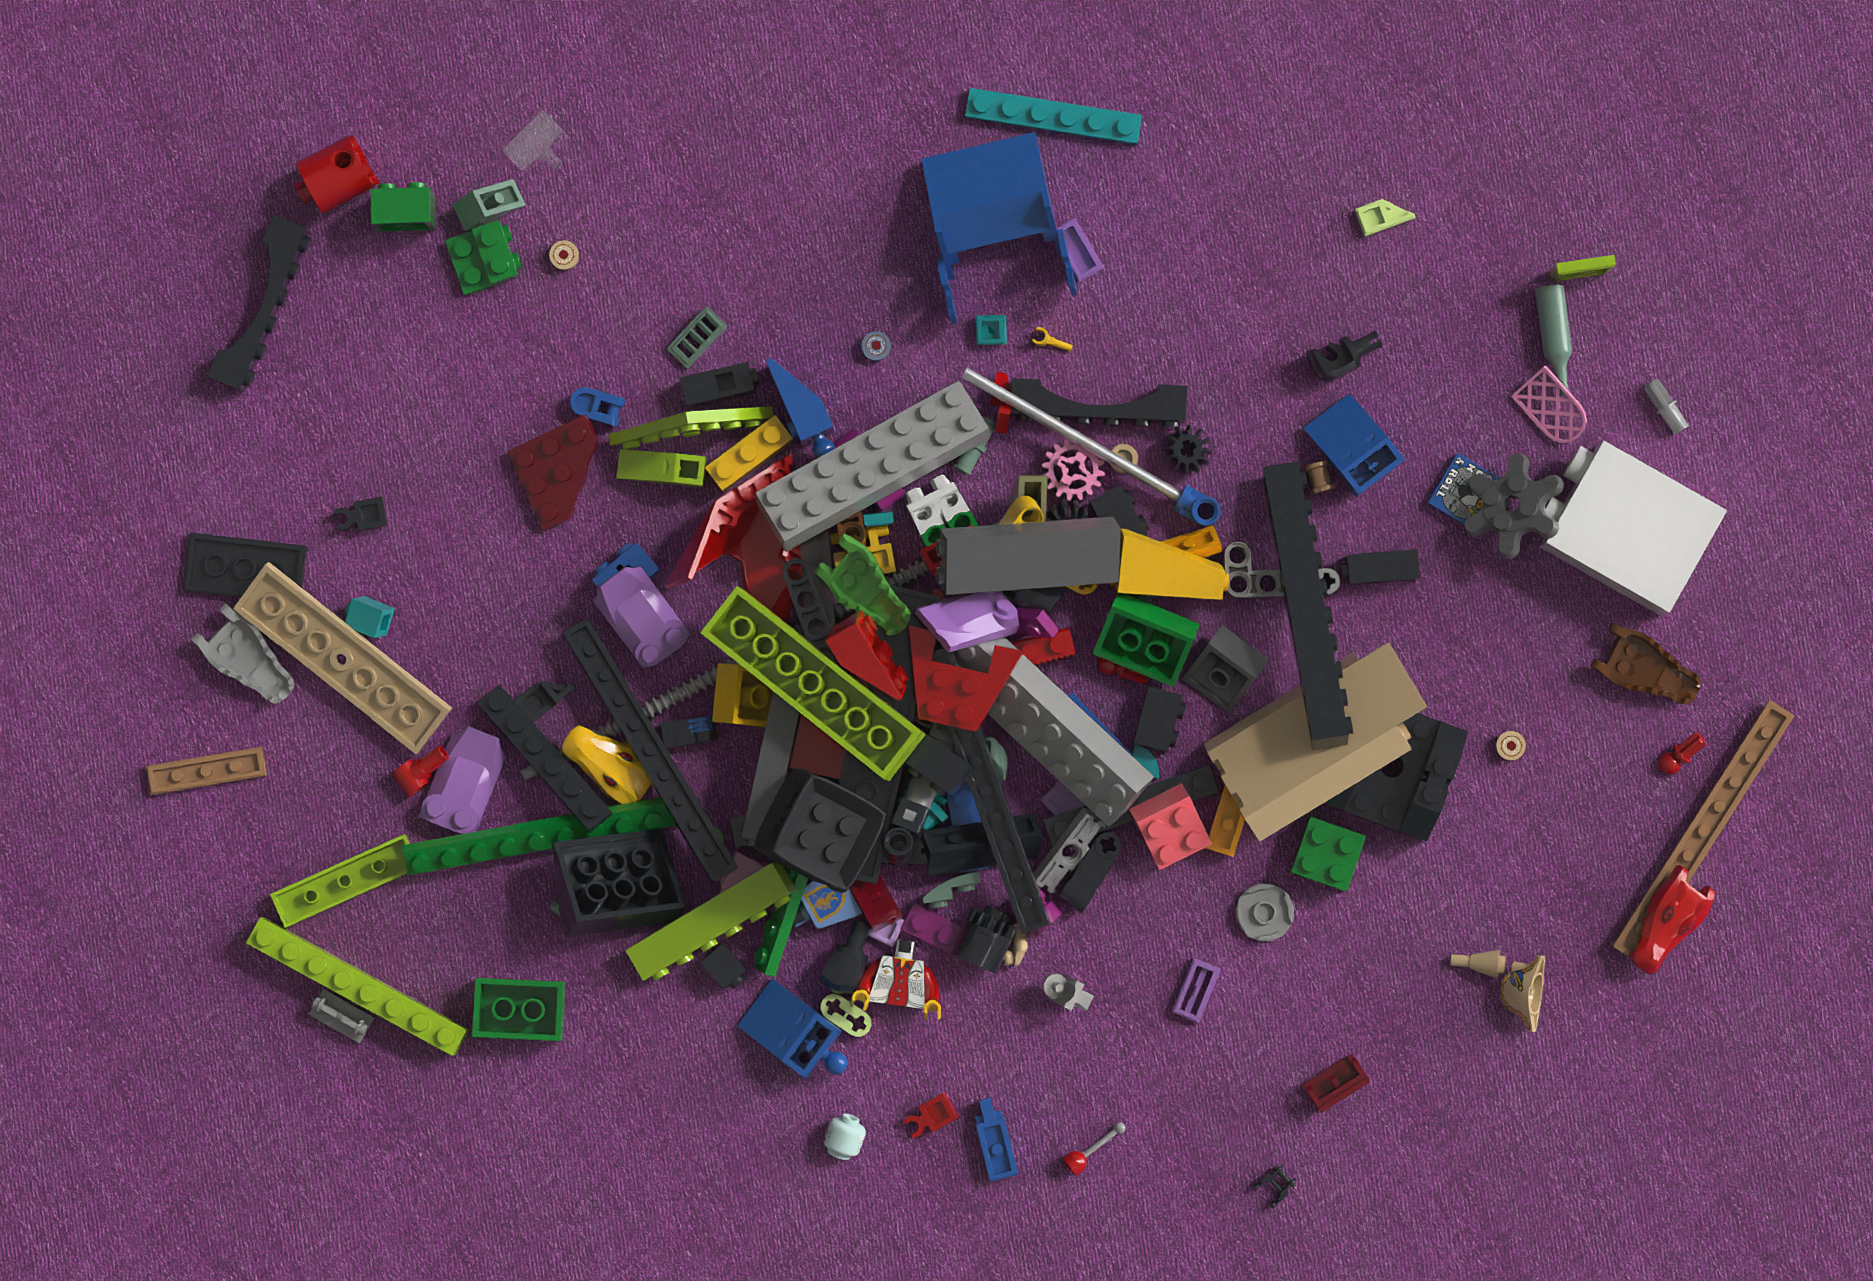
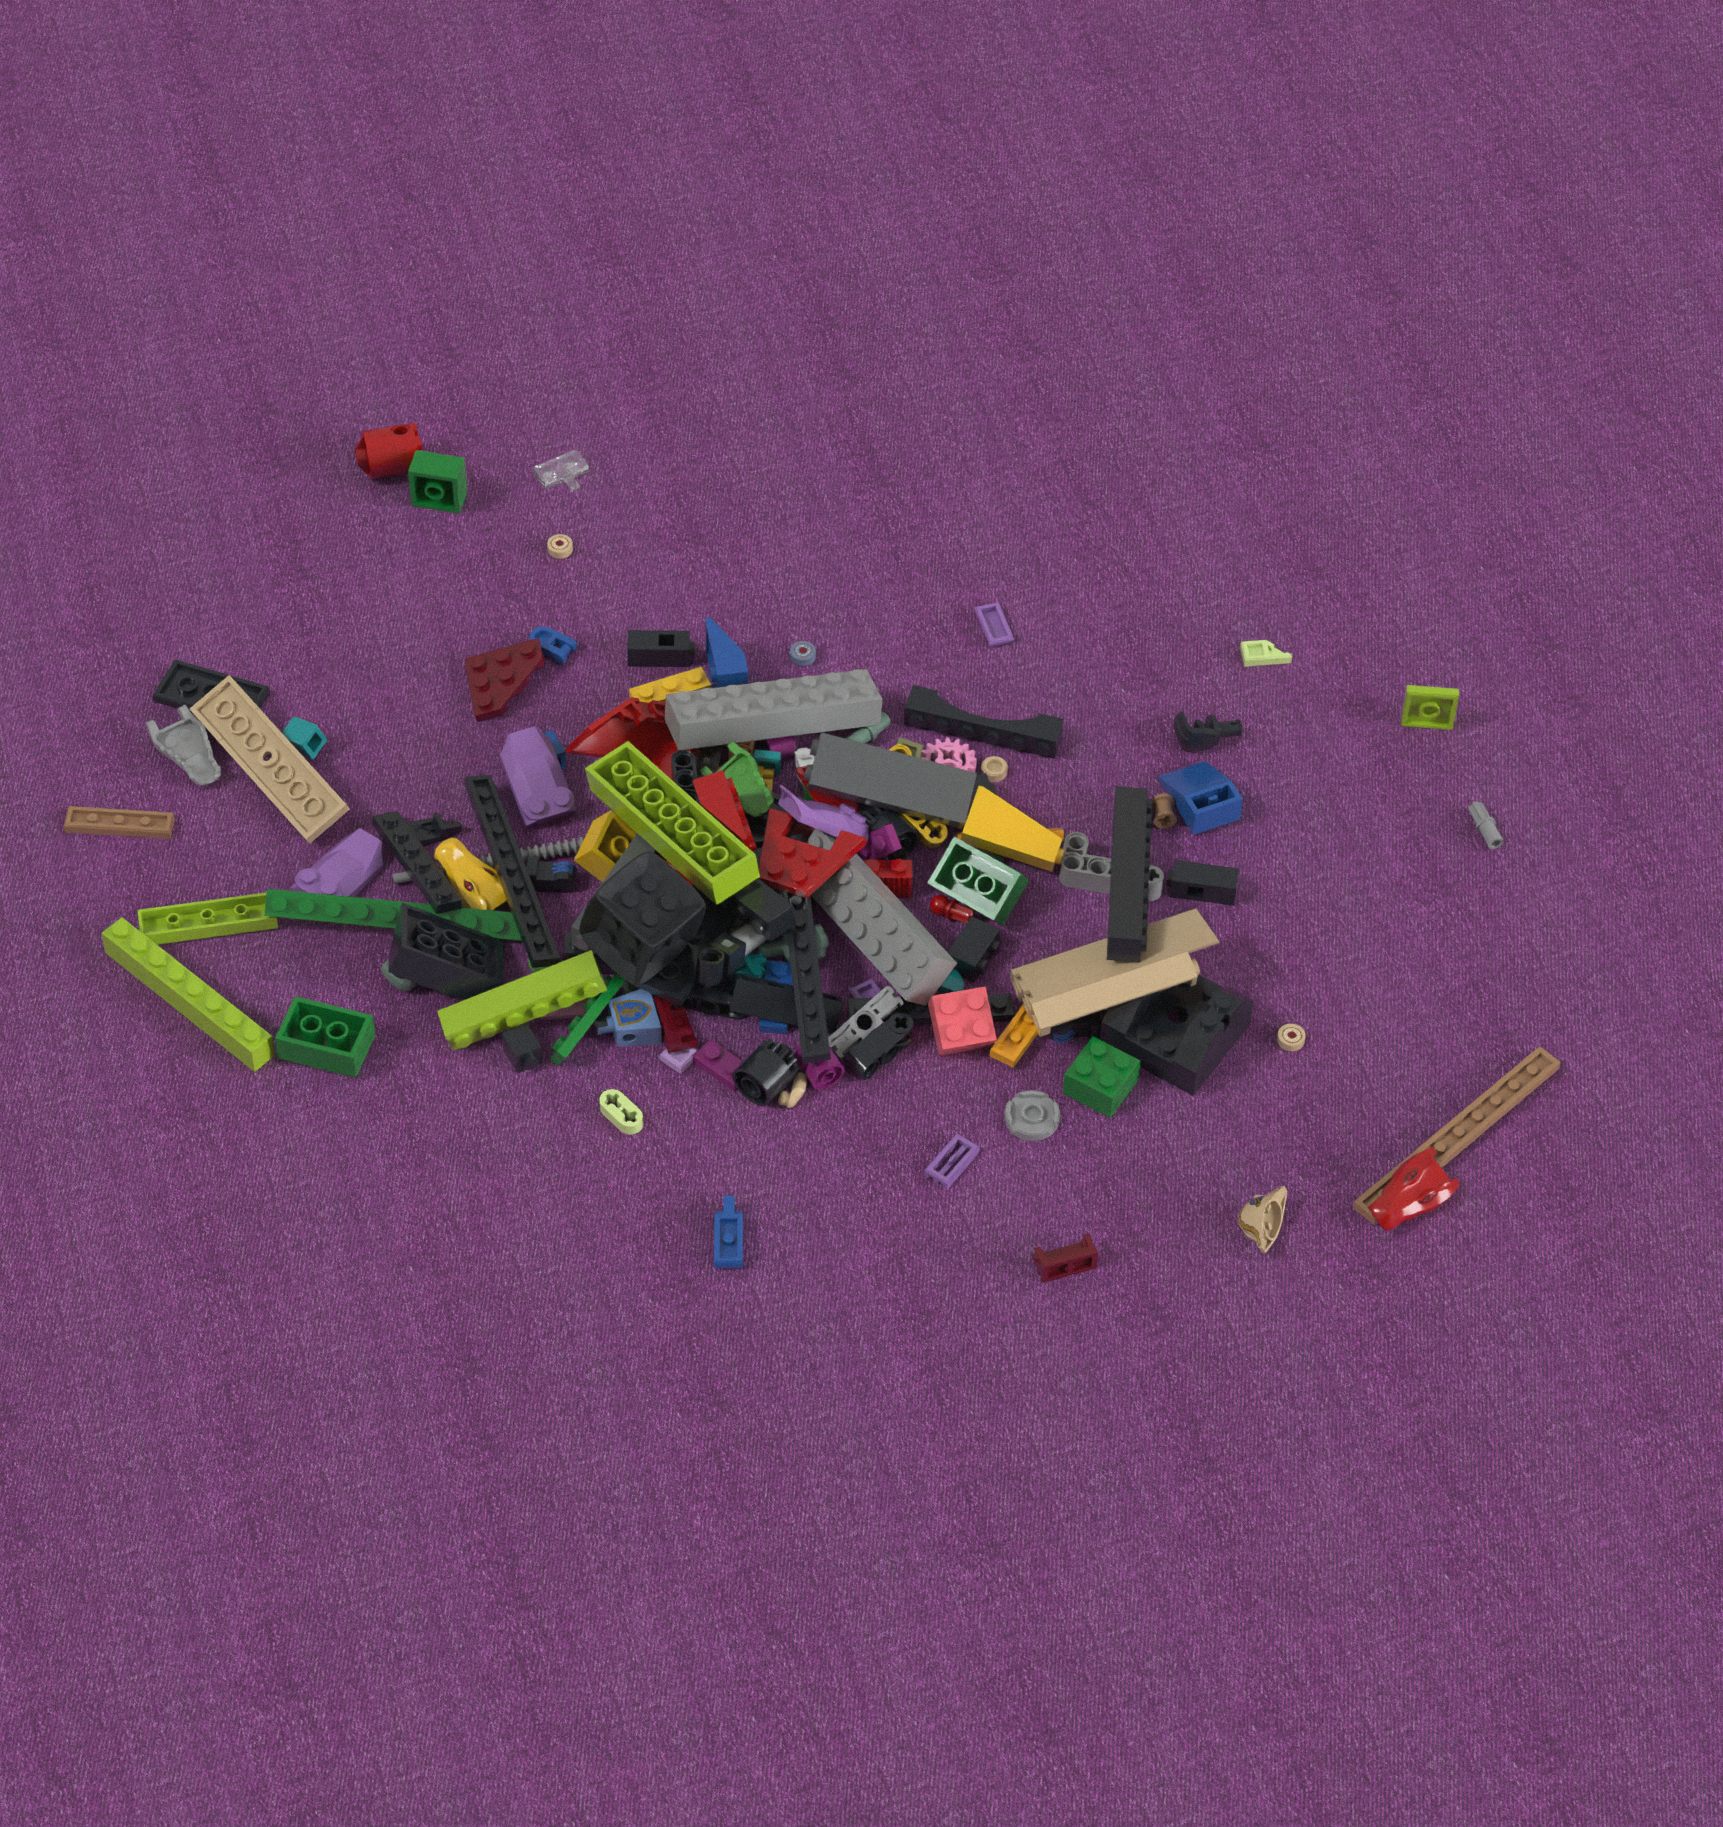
camera: 15 degrees right, 35 degrees down
(285, 245) = (260, 557): black arch -> none
(341, 1016) = (162, 1016): light grey hinge -> none
(367, 514) = (327, 676): black plate -> none
(414, 775) = (298, 856): red pin -> none
(484, 257) = (493, 533): green plate -> none
(488, 204) = (508, 498): sand green slope -> none
(662, 468) = (593, 690): lime slope -> none
(690, 425) = (622, 646): lime plate -> none
(720, 326) = (665, 606): sand green slope -> none
(791, 1027) = (571, 1111): blue slope -> none
(844, 1136) = (588, 1199): light aqua head -> none
(847, 963) = (634, 1067): black piece -> none
(899, 982) = (676, 1091): torso -> none
(935, 1114) = (678, 1201): red plate -> none
(939, 895) = (738, 1033): sand green slope -> none
(990, 198) = (928, 564): blue piece -> none
(991, 329) = (905, 659): teal tile -> none
(1005, 409) = (898, 707): red slope -> none
(1051, 341) = (948, 677): yellow hand -> none
(1053, 116) = (999, 538): teal plate -> none
(1066, 991) = (832, 1129): light grey hips -> none
(1077, 1161) = (800, 1267): hinge -> none
(1186, 500) = (1051, 808): flat silver piece -> none
(1196, 453) = (1052, 769): black gear -> none
(1225, 669) = (1043, 925): dark grey slope -> none
(1283, 1191) = (981, 1320): black piece -> none
(1453, 492) = (1293, 850): tile -> none
(1488, 963) = (1232, 1192): tan cone -> none
(1529, 515) = (1344, 851): dark grey plate -> none
(1542, 425) = (1354, 792): bright pink window -> none
(1554, 329) = (1396, 751): sand green piece -> none
(1631, 526) = (1435, 891): white brick -> none
(1644, 666) = (1428, 998): reddish brown animal -> none
(1670, 762) = (1438, 1080): red axle -> none

